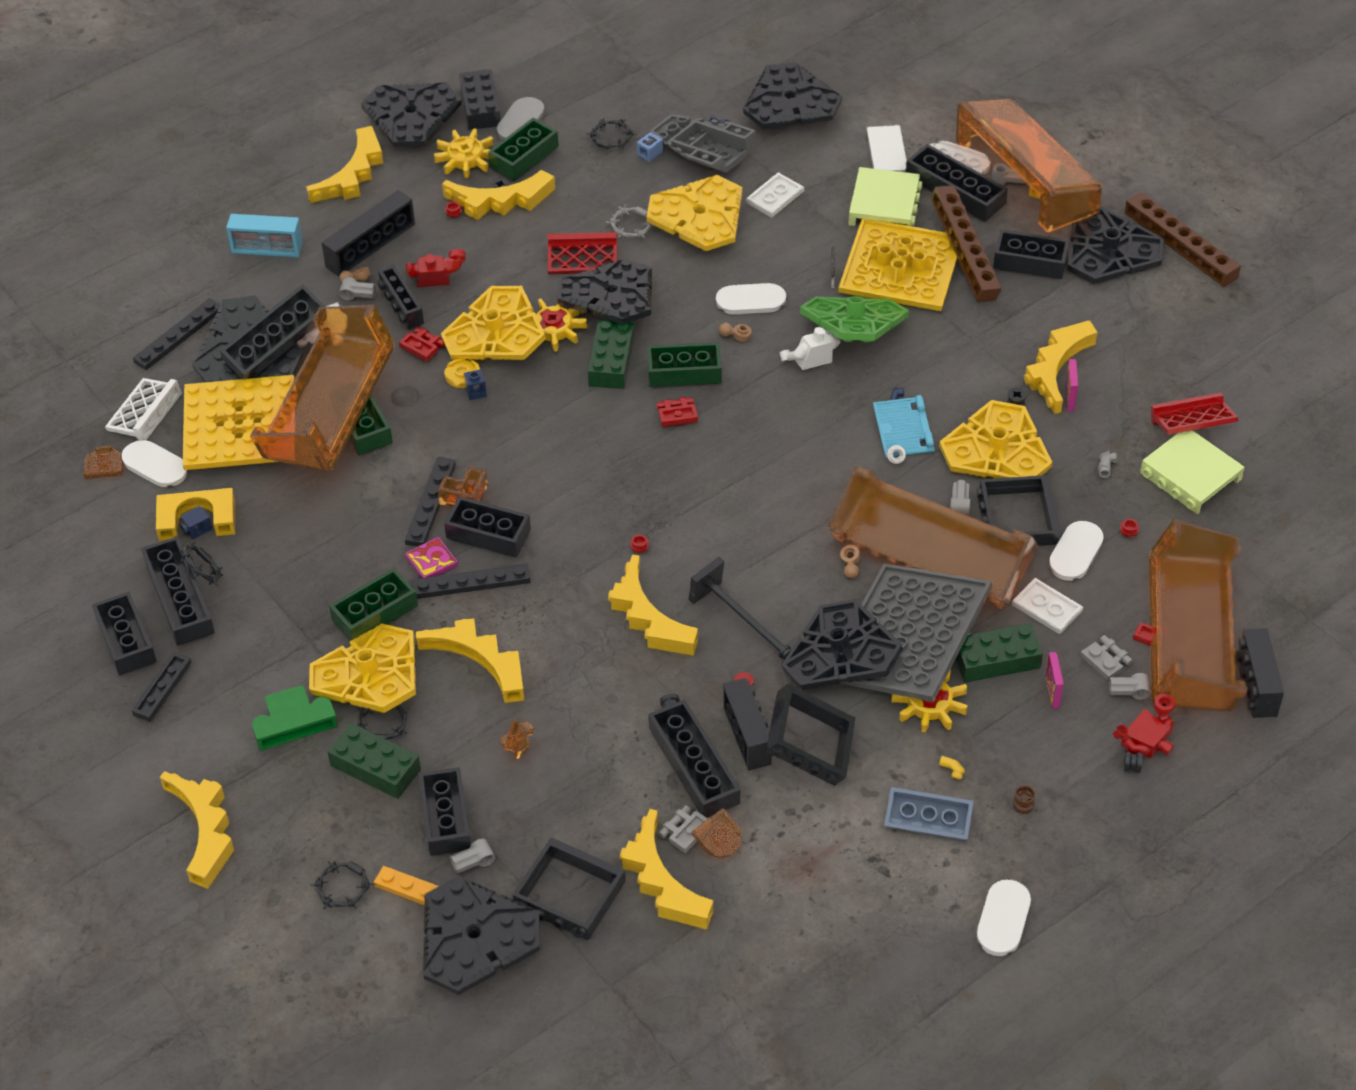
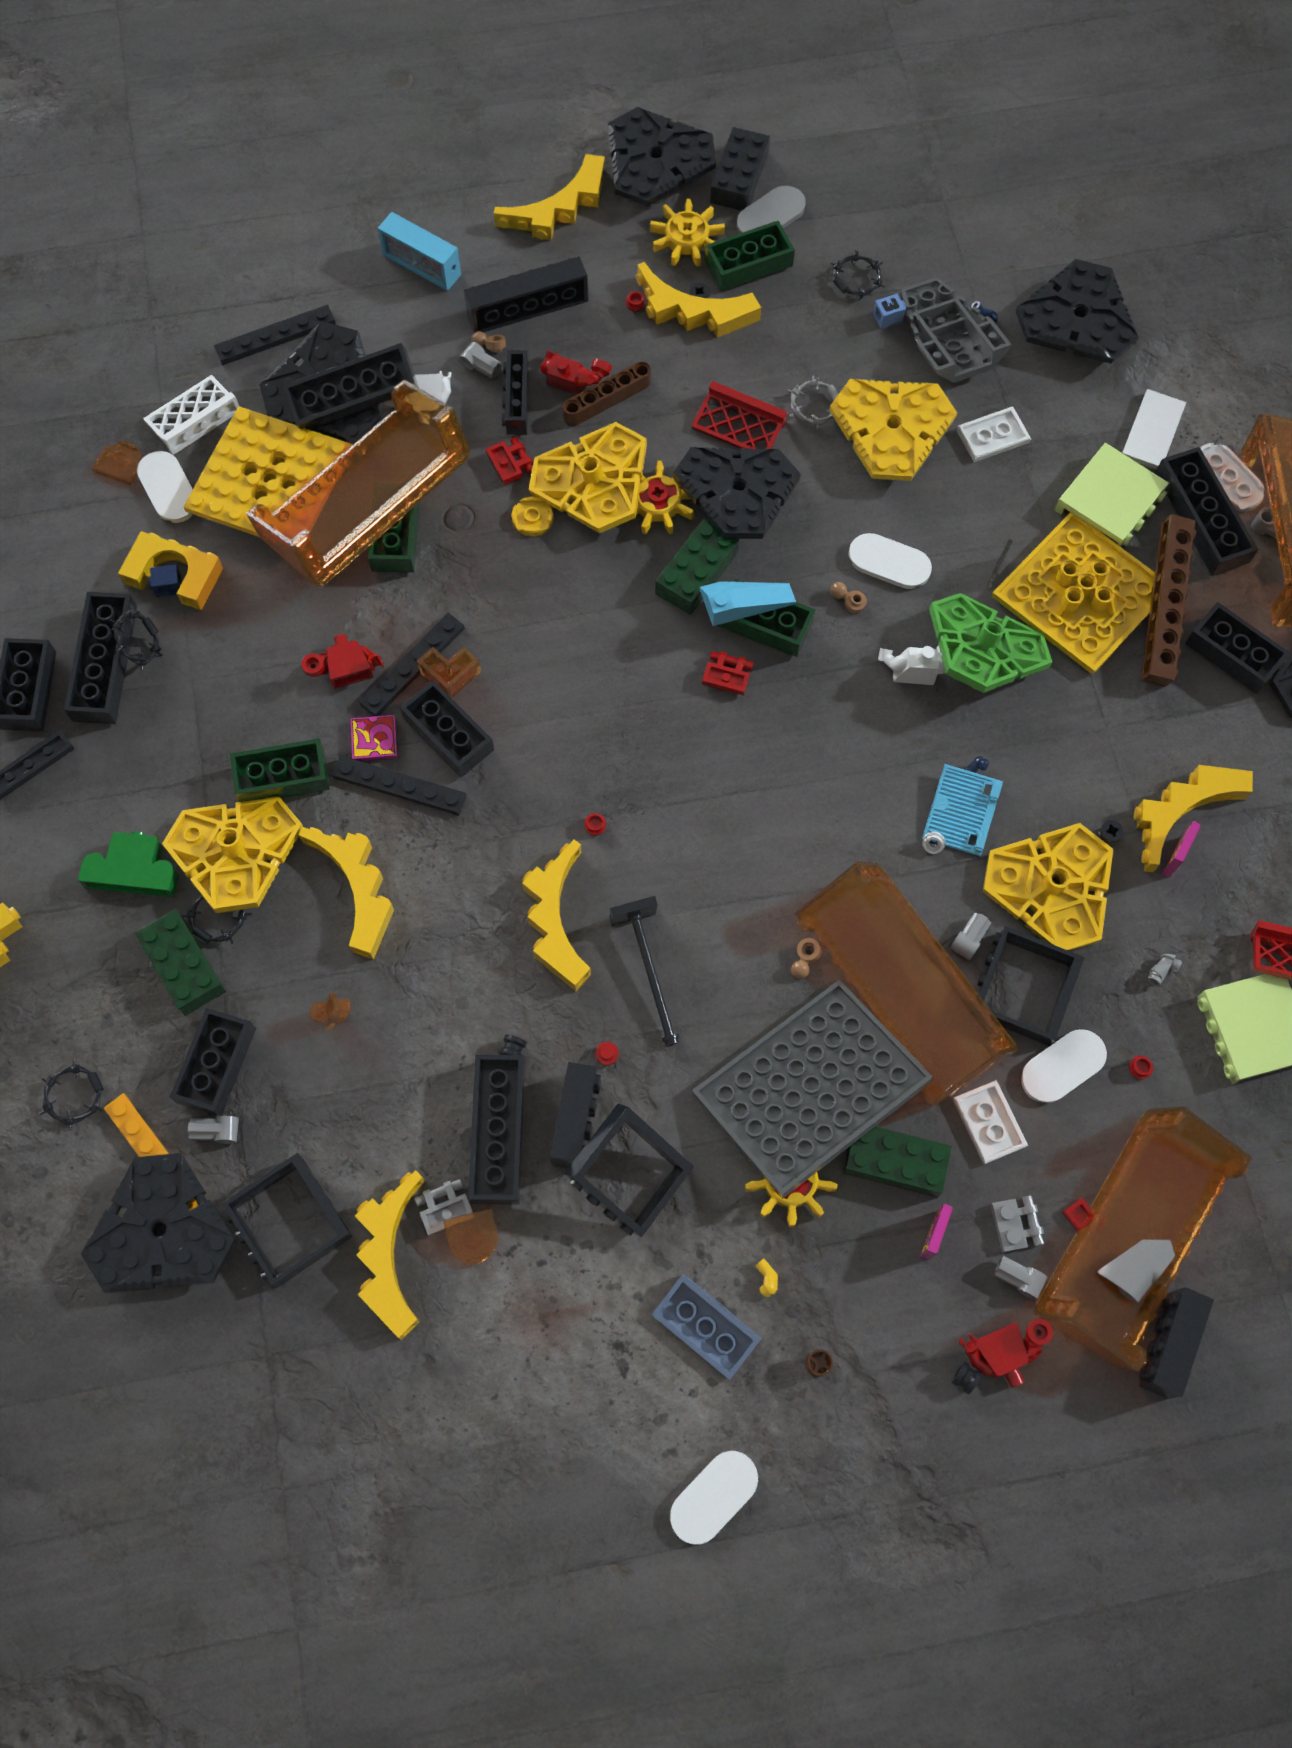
camera: 25 degrees right, 20 degrees up
(379, 517) = (344, 661): none -> red torso
(470, 274) = (607, 393): none -> reddish brown beam
(475, 384) = (533, 539): dark blue brick -> none
(659, 357) = (743, 599): none -> medium azure wedge
(840, 647) = (743, 1094): black plate -> none
(1206, 642) = (1139, 1267): none -> light grey panel

